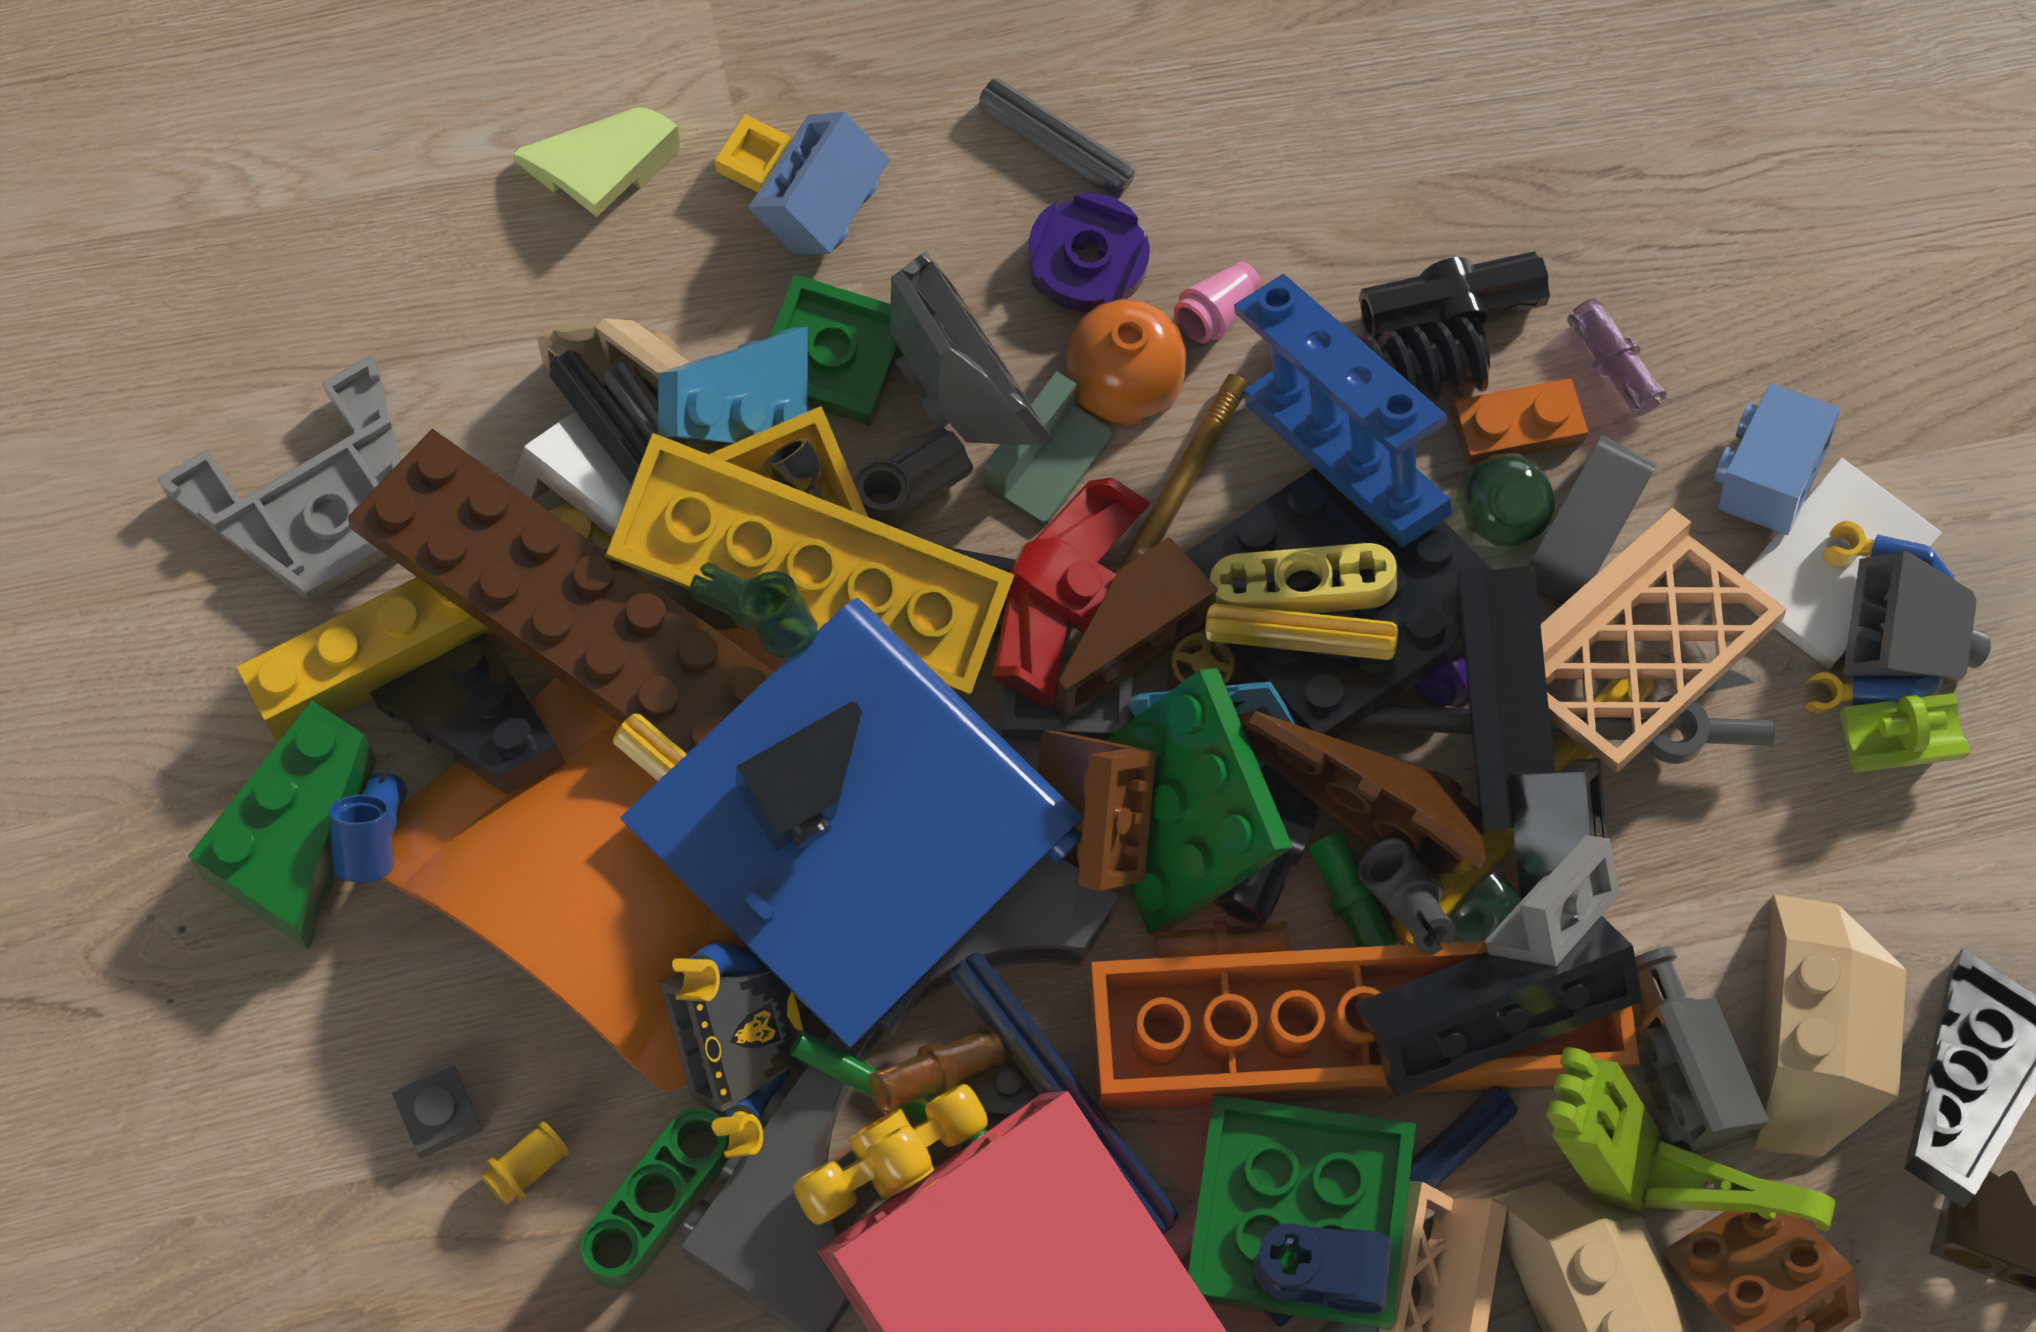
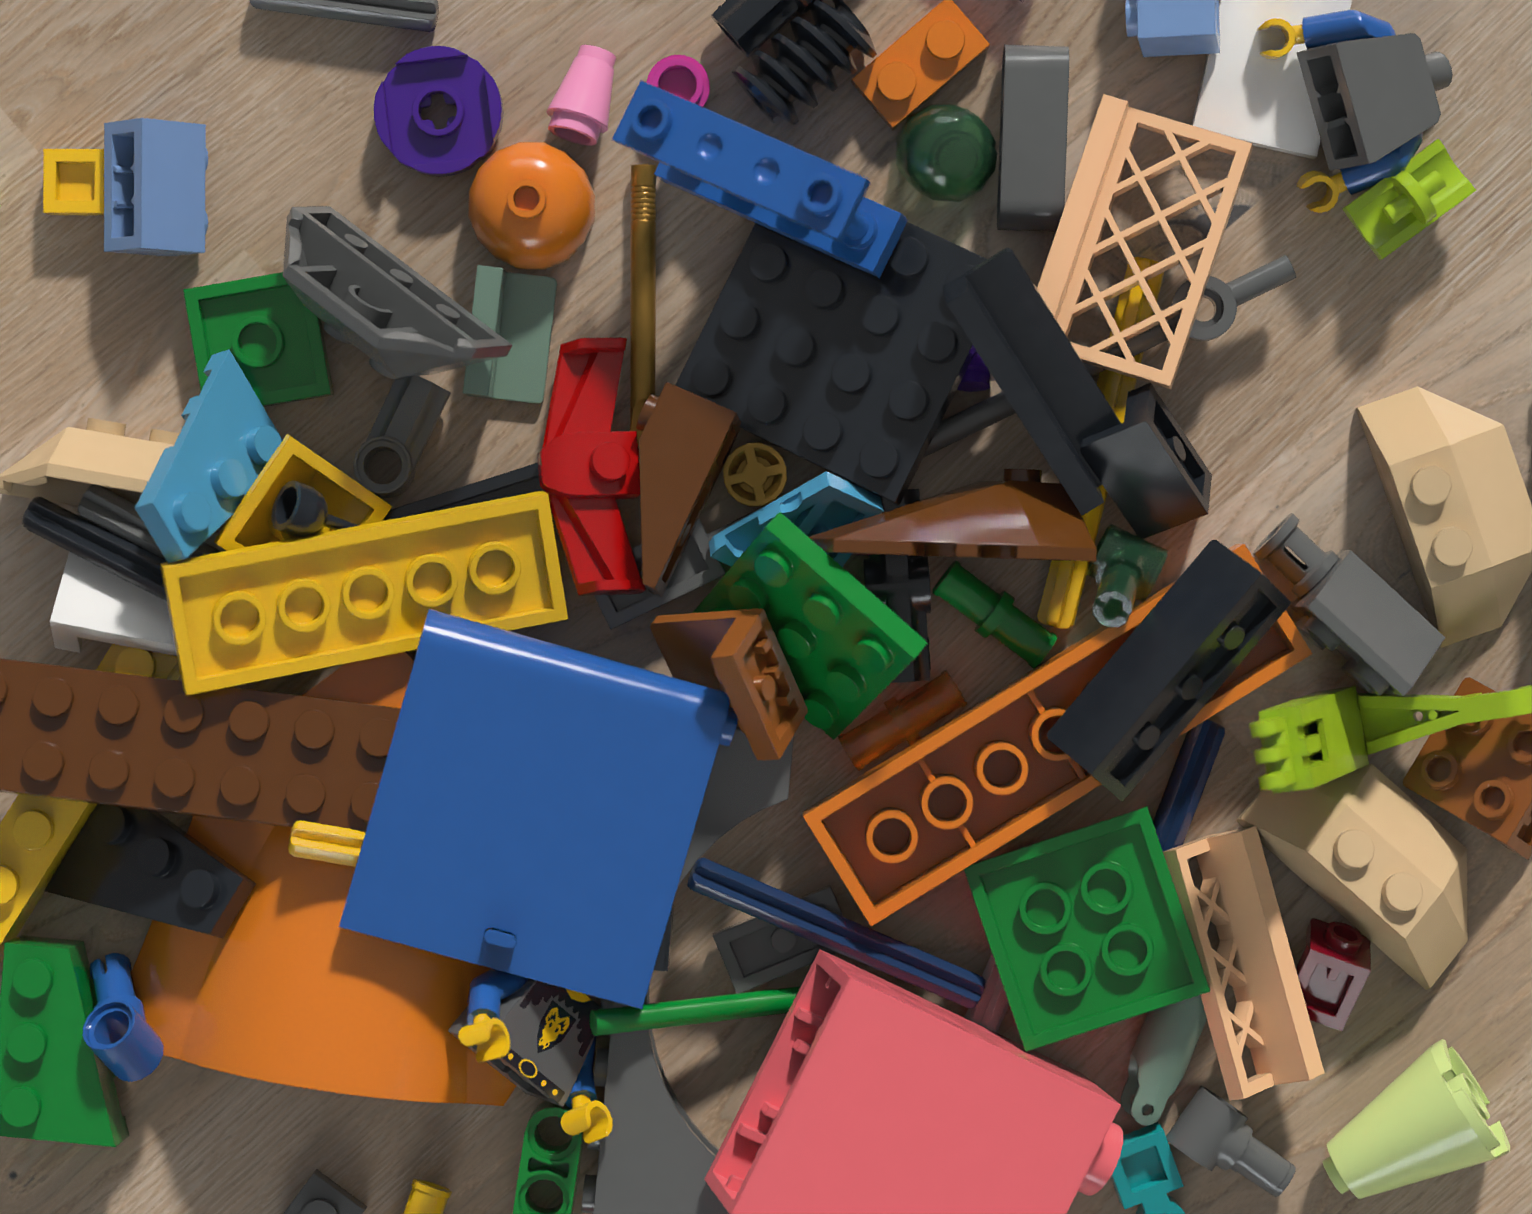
camera: 20 degrees left, 20 degrees up
(763, 605) = (346, 678): clear green pin -> none
(801, 778) = (478, 820): black slope -> none
(890, 1154) = (724, 1073): yellow gear -> none
(936, 1068) = (721, 976): clear orange pin -> none
(1301, 631) = (830, 413): yellow axle -> none
(1334, 1268) = (1147, 980): dark blue piece -> none
(1347, 559) = (773, 395): light yellow beam -> none
(1408, 892) = (1043, 597): dark grey pin -> none
(1559, 906) = (1180, 559): light grey panel -> none

